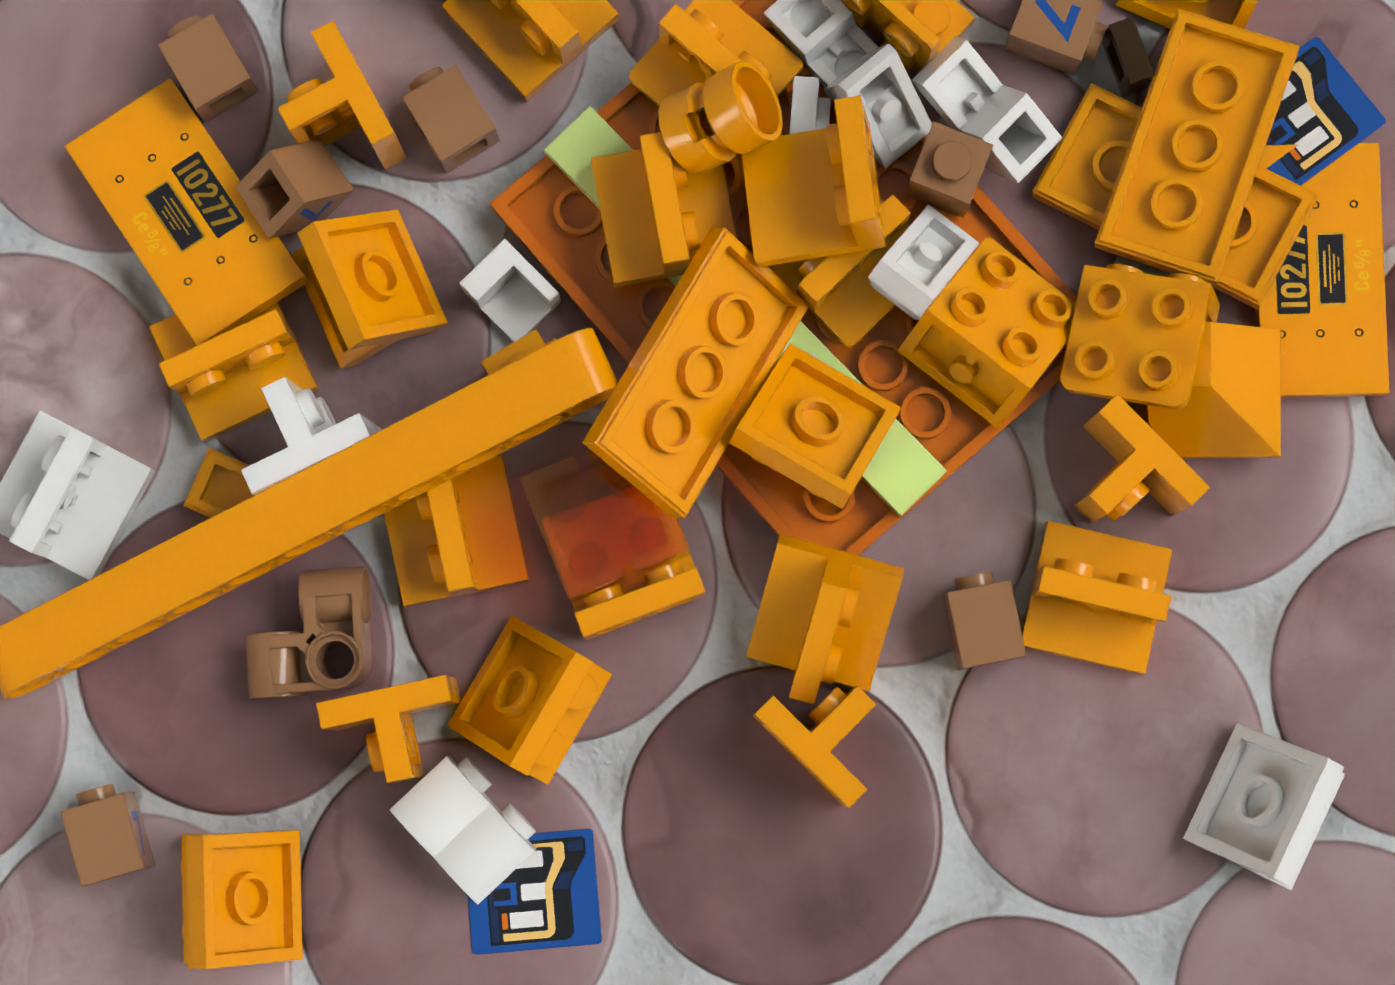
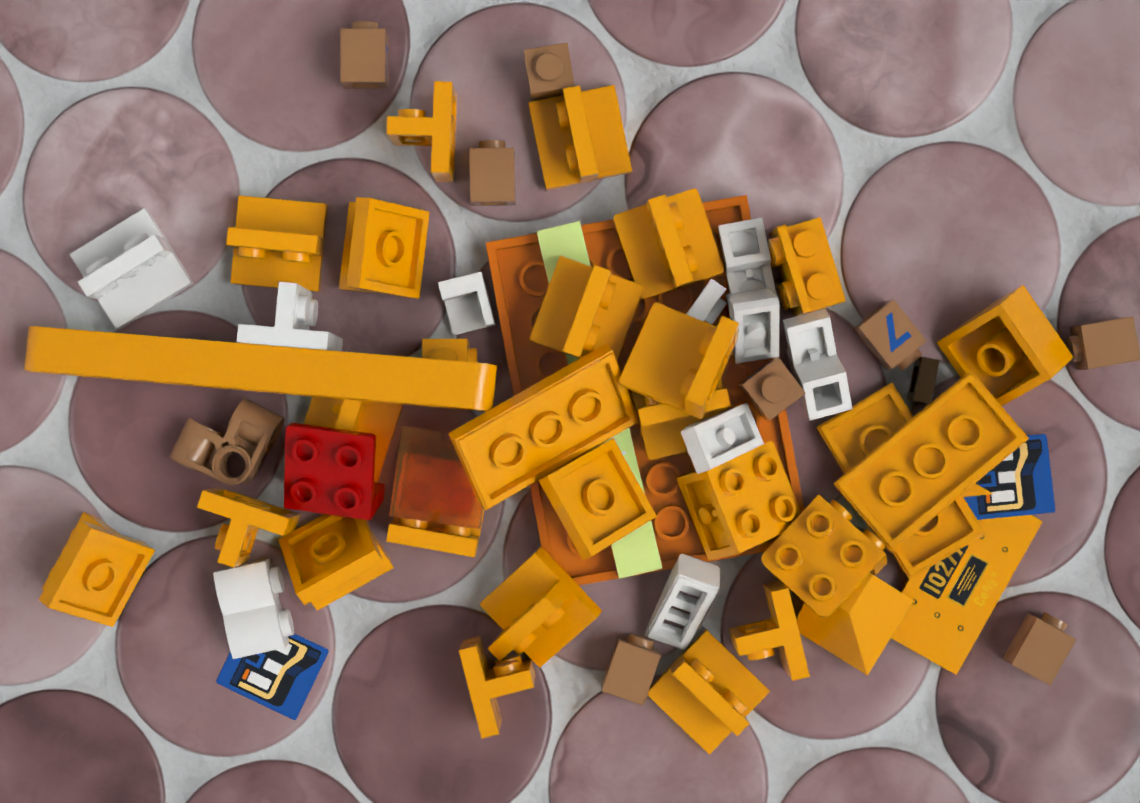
camera: 25 degrees right, 5 degrees up
(106, 835) = (38, 487): medium nougat brick -> none
(183, 213) = (299, 140): light orange tile -> none
(218, 485) = (224, 316): light orange tile -> none
(294, 187) = (373, 165): medium nougat brick -> none
(463, 590) = (331, 471): none -> red bracket
(720, 118) = (649, 282): light orange wheel -> none
(991, 463) = (694, 578): none -> white slope

